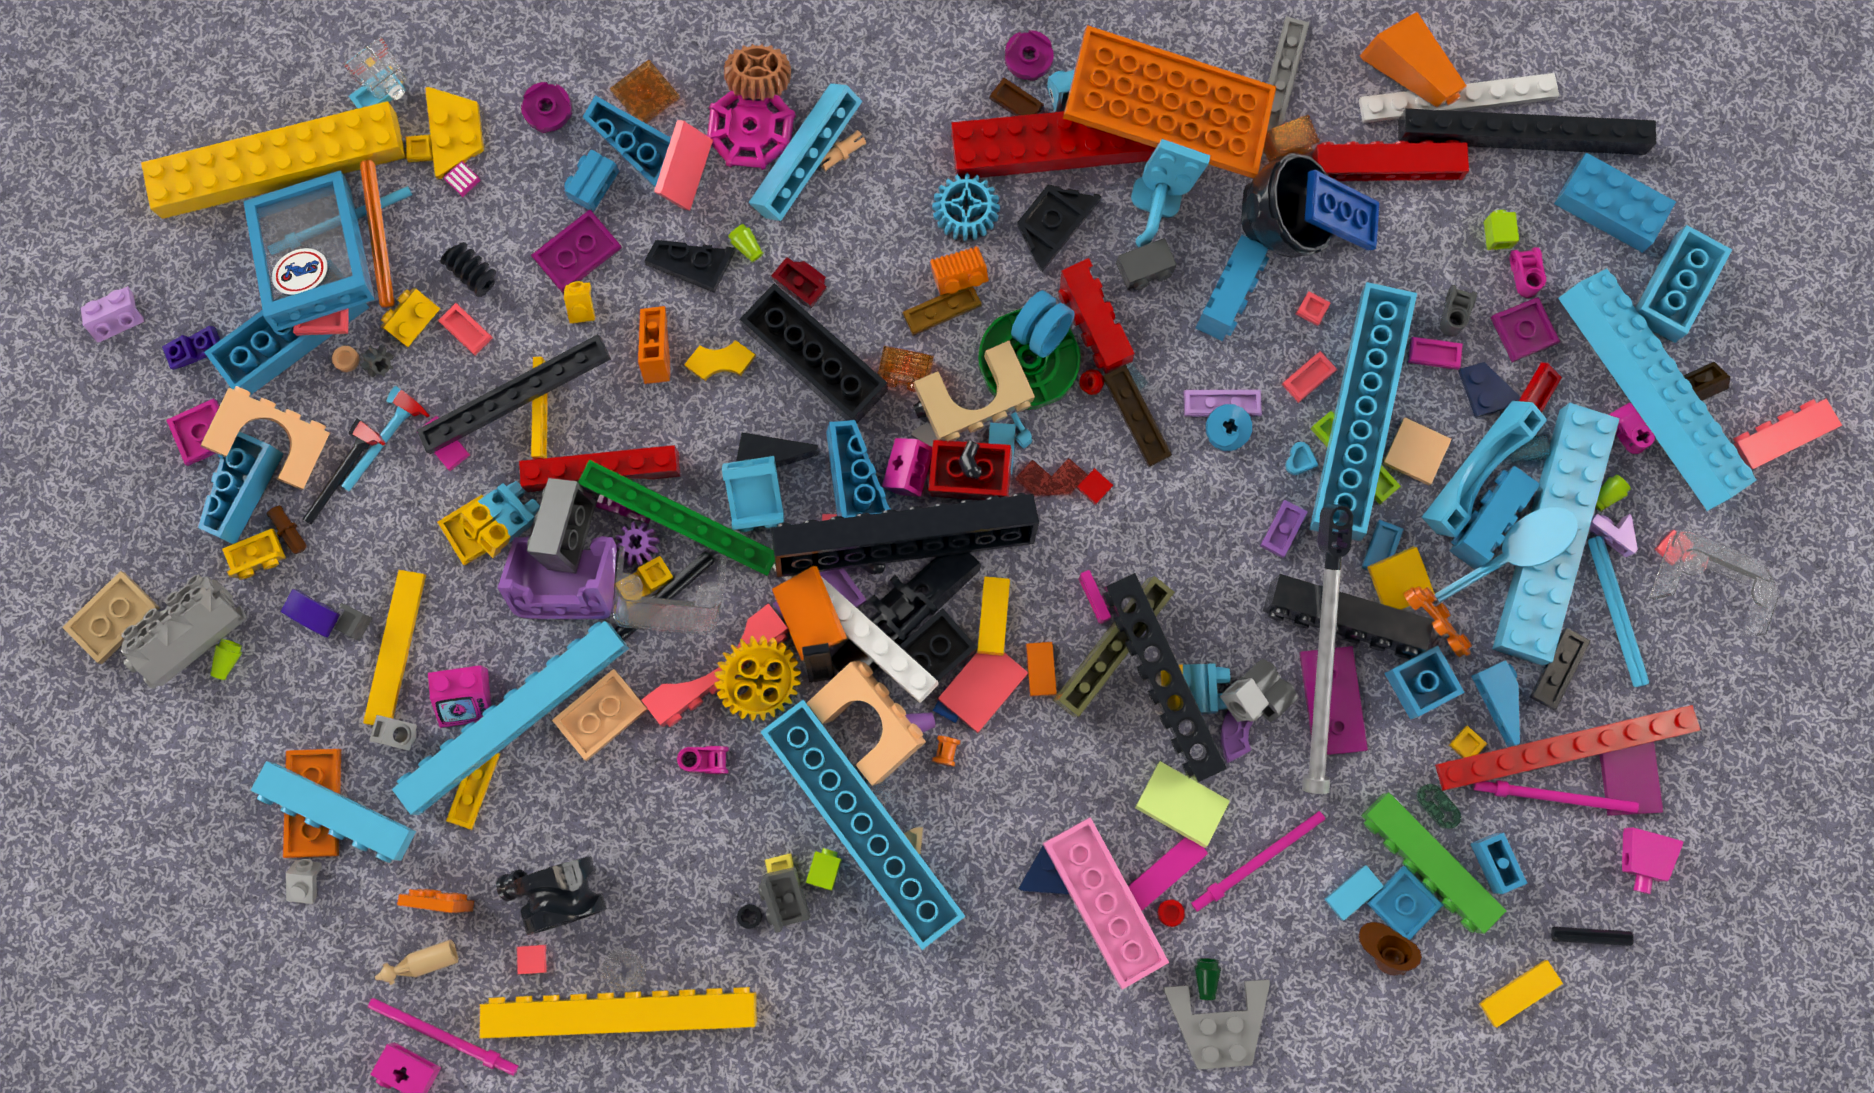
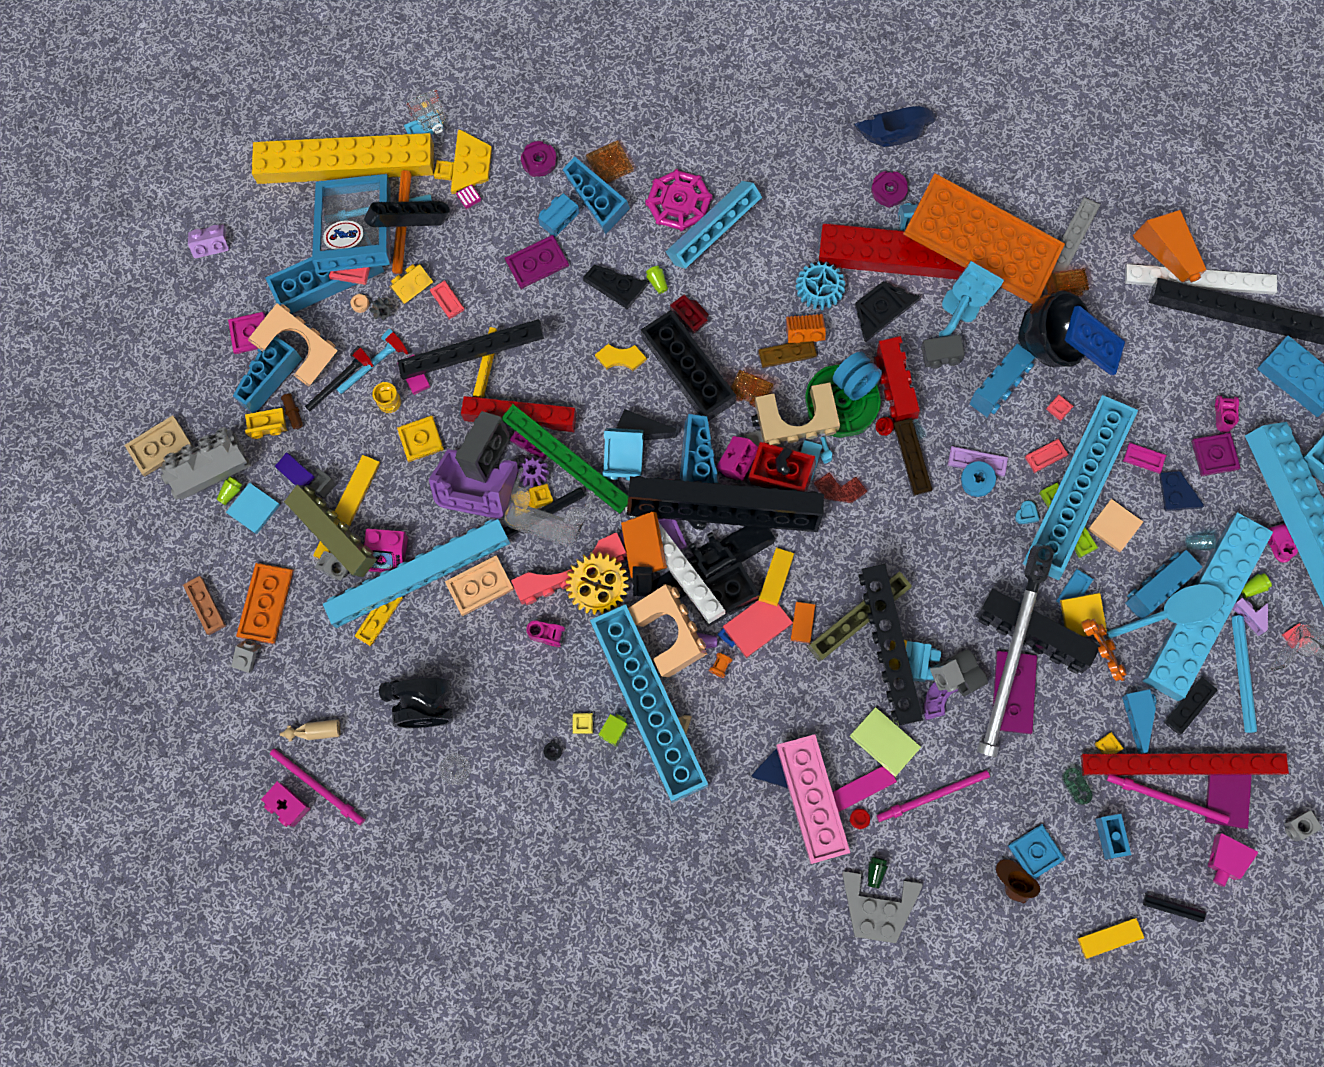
camera: 20 degrees right, 5 degrees down
(190, 349) = (254, 275): dark purple slope -> none
(228, 825) = (204, 605): none -> nougat plate
(264, 676) = (253, 508): none -> medium azure tile
(332, 811) = (282, 614): medium azure brick -> none
(379, 685) = (330, 530): none -> olive brick
(381, 223) = (406, 214): none -> black beam
(413, 483) = (386, 397): none -> yellow wheel
(437, 901) = (336, 688): orange plate -> none
(469, 268) = (459, 258): black piece -> none
(499, 517) = (440, 432): hips -> none
(531, 959) = (391, 746): coral tile -> none
(579, 302) = (530, 296): yellow bracket -> none
(618, 1014) = (443, 798): yellow brick -> none
(654, 345) = (576, 337): orange slope -> none
(683, 165) = (625, 216): coral tile -> none
(757, 72) = (692, 162): nougat gear -> none
(783, 898) = (580, 743): dark grey bracket -> none
(842, 150) = (740, 228): light nougat pin -> none
(1015, 99) = (872, 217): reddish brown tile -> none
(1094, 597) = (853, 579): dark pink tile -> none
(1095, 486) = (870, 501): red tile -> none
(1283, 529) = (1003, 560): medium lavender plate -> none
(1354, 892) = (999, 835): medium azure tile -> none
(1393, 161) = (1142, 314): red brick -> none
(1424, 682) = (1084, 692): dark azure brick -> none
(1433, 863) = (1064, 827): bright green brick -> none
(1454, 504) = (1136, 567): medium azure arch -> none
(1458, 307) = (1168, 428): dark grey piece -> none
(1501, 230) = (1212, 379): lime brick -> none
(1541, 386) = (1217, 500): red tile -> none
(1740, 791) = (1310, 824): none -> light grey brick

